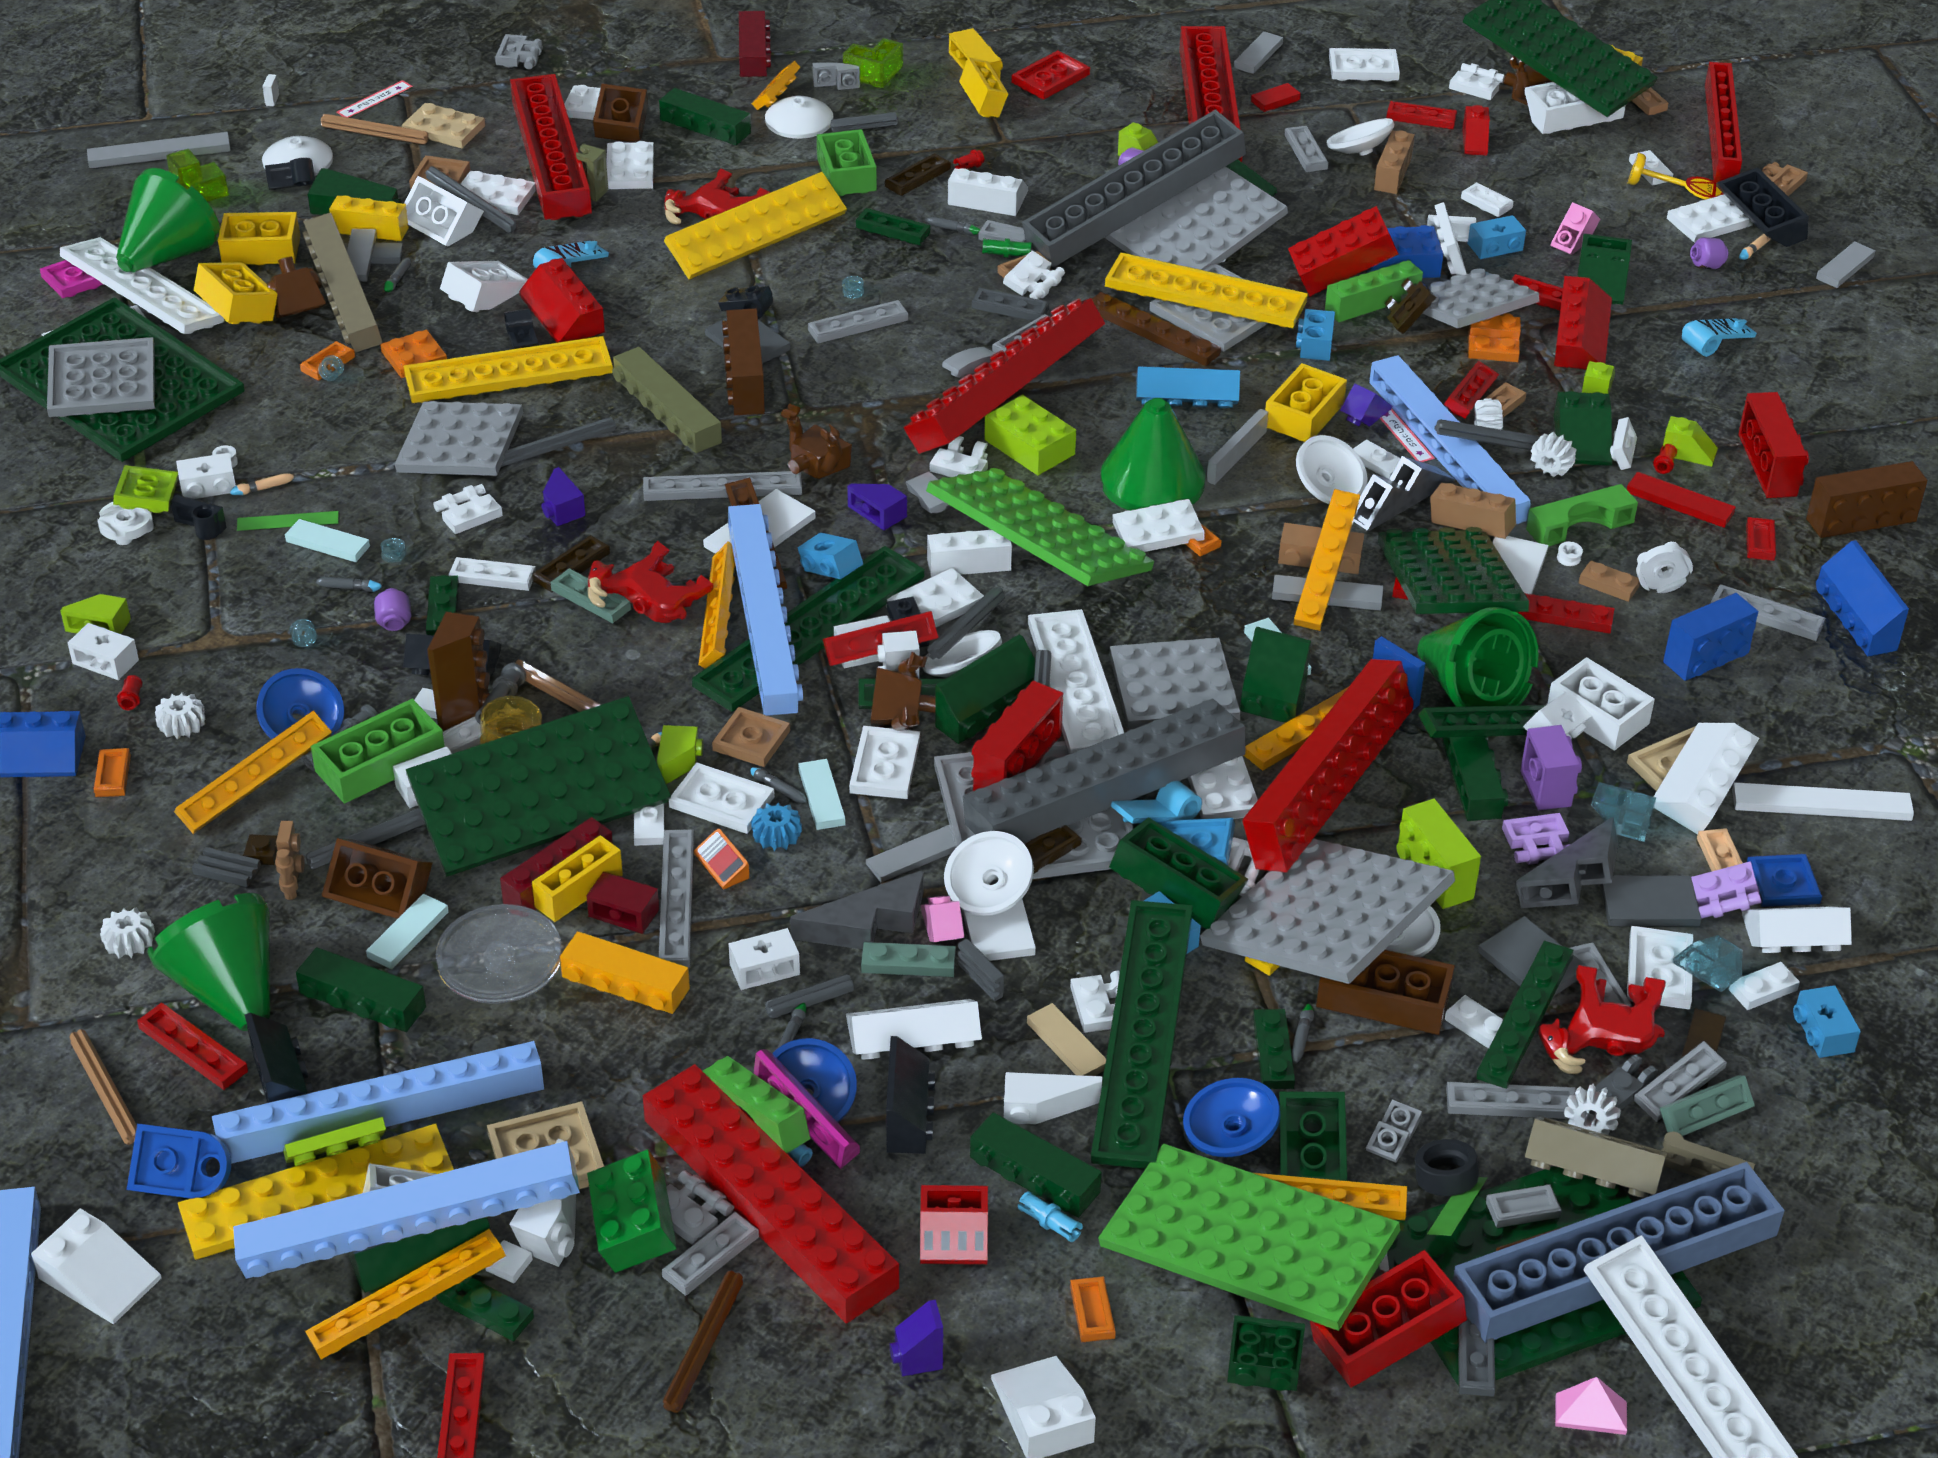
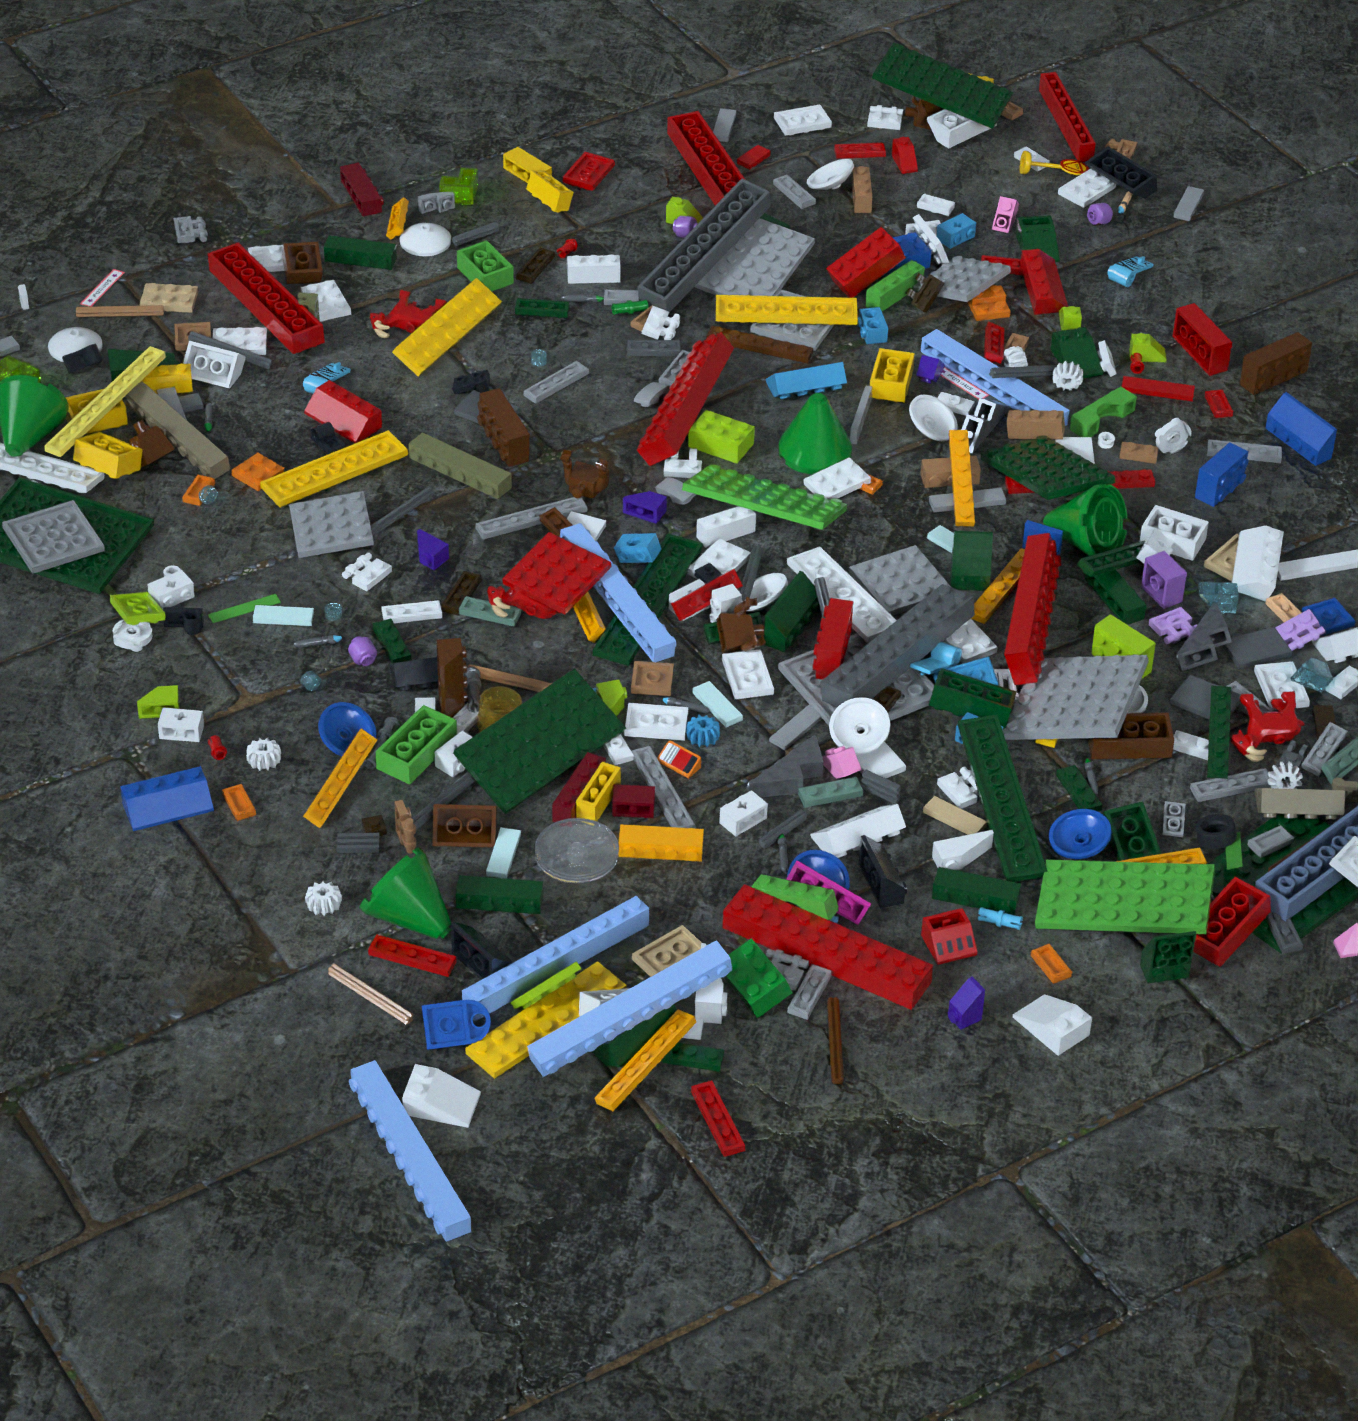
camera: 20 degrees left, 0 degrees up
(244, 489) = (211, 587): light nougat piece -> none
(265, 226) = (105, 401): none -> light yellow plate
(481, 283) = (277, 411): white slope -> none
(690, 563) = (556, 573): none -> red plate

